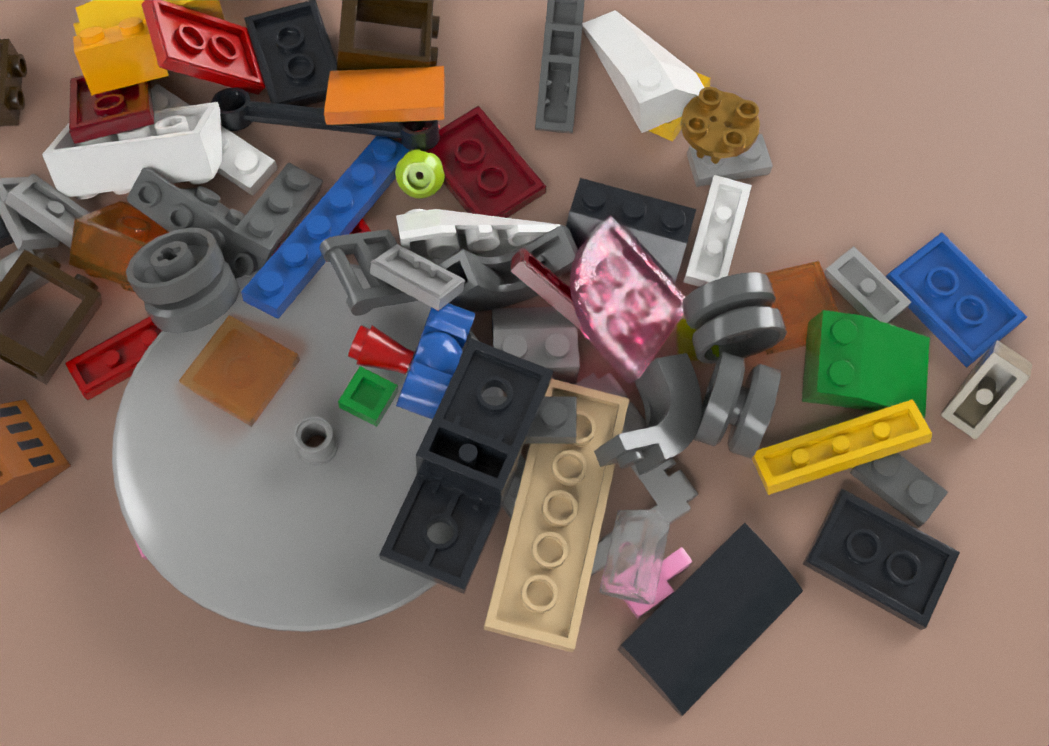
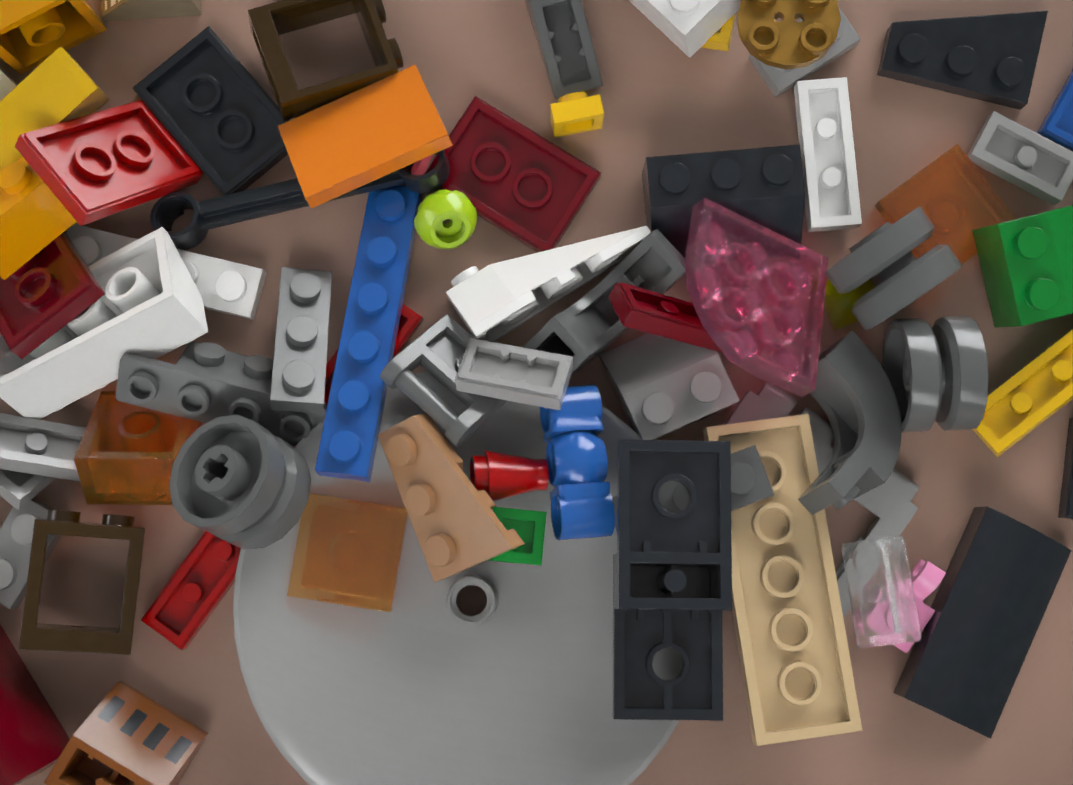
camera: 15 degrees left, 15 degrees up
(323, 350) = (443, 505): none -> medium nougat wing
(544, 141) = (576, 114): none -> yellow plate
(848, 207) = (967, 56): none -> black wing

